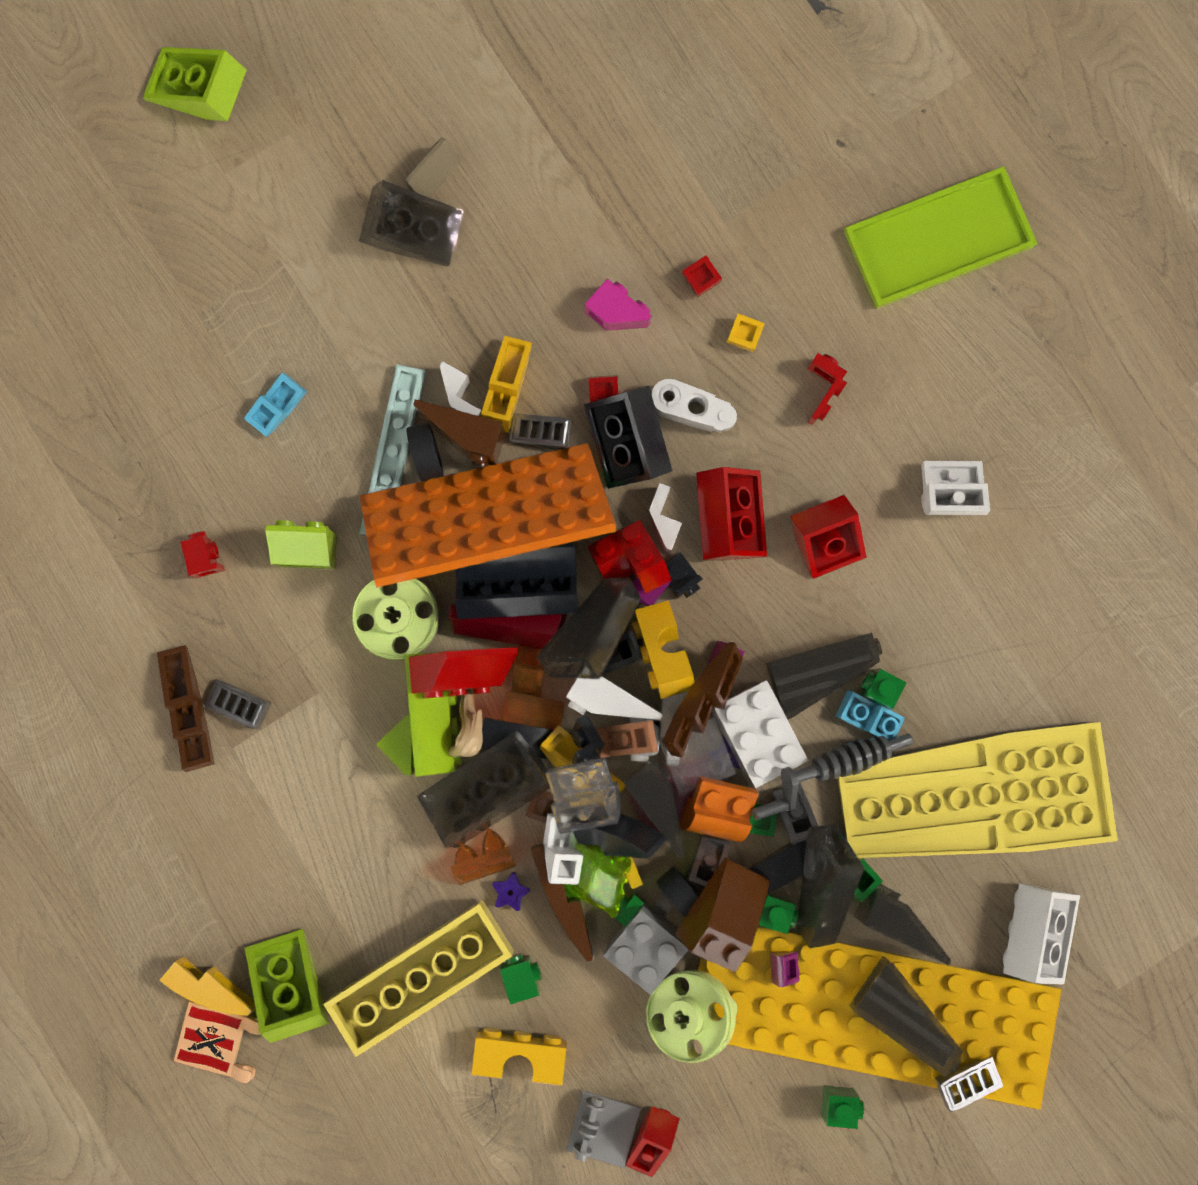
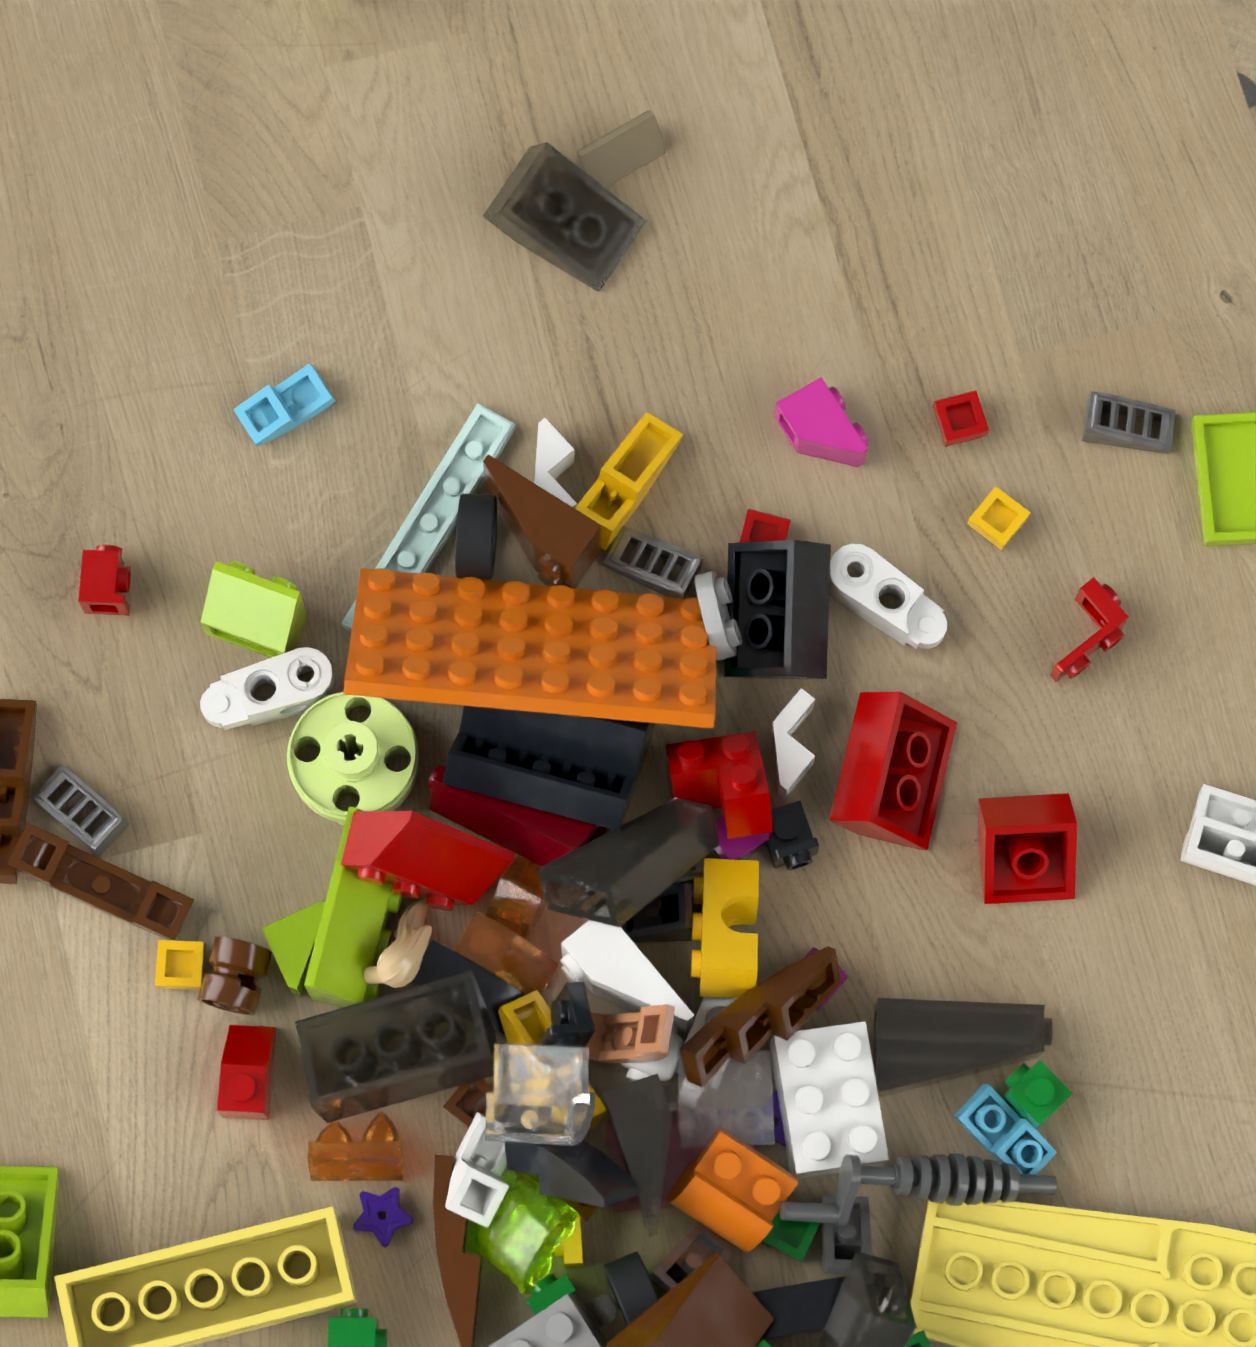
camera: 20 degrees right, 10 degrees down
(265, 747) = (100, 883): none -> reddish brown slope
(307, 604) = (231, 700): none -> white piece
(333, 781) = (180, 964): none -> yellow plate
(369, 778) = (234, 975): none -> reddish brown wheel
(397, 833) = (246, 1072): none -> red slope
(586, 443) = (713, 599): none -> light grey plate
(795, 236) = (1115, 405): none -> flat silver slope

